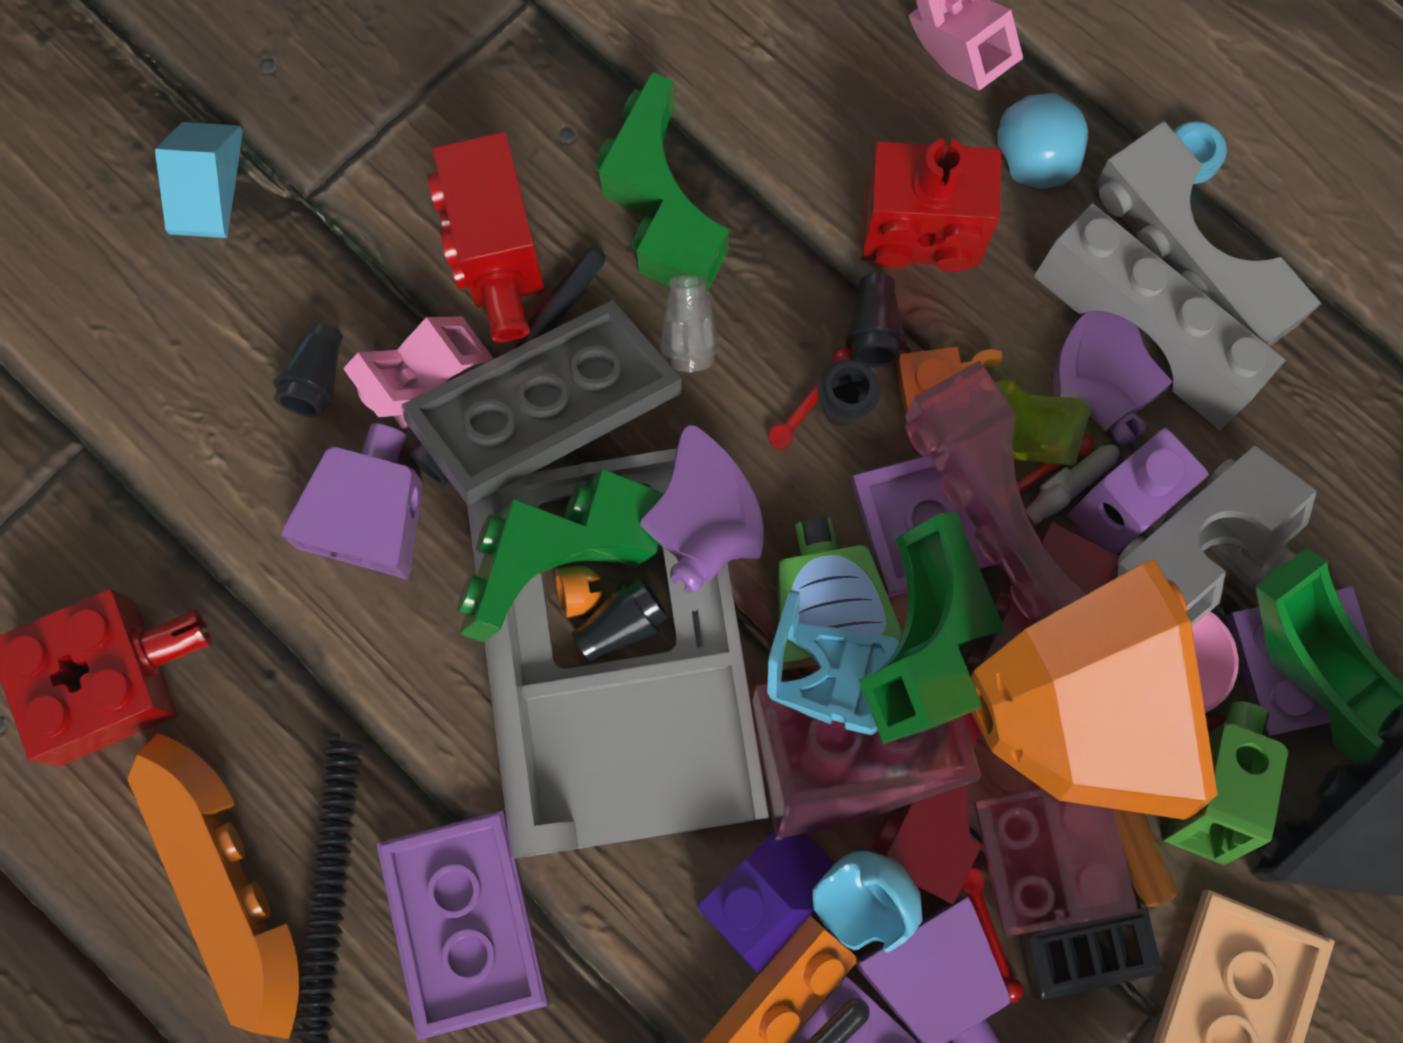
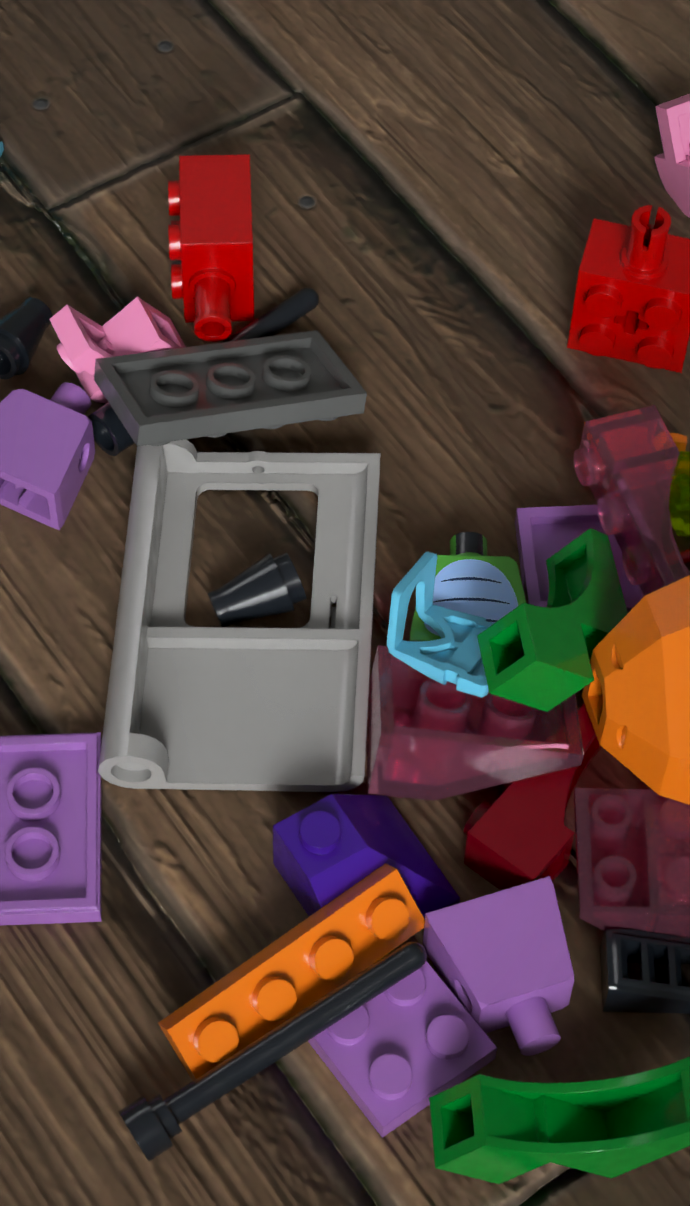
camera: 10 degrees right, 20 degrees down
(525, 541) = (191, 491): green arch -> none
(574, 590) = (222, 559): orange hinge -> none
(634, 172) = (388, 290): green arch -> none
(689, 326) = (385, 356): clear cone -> none
(705, 512) = (362, 502): medium lavender arm -> none
(781, 434) = (455, 473): red hinge -> none
(851, 381) = (524, 434): black cone -> none
(868, 901) = (445, 851): medium azure hair -> none
(876, 323) = (567, 395): black cone -> none
(972, 886) = (582, 992): red hinge -> none

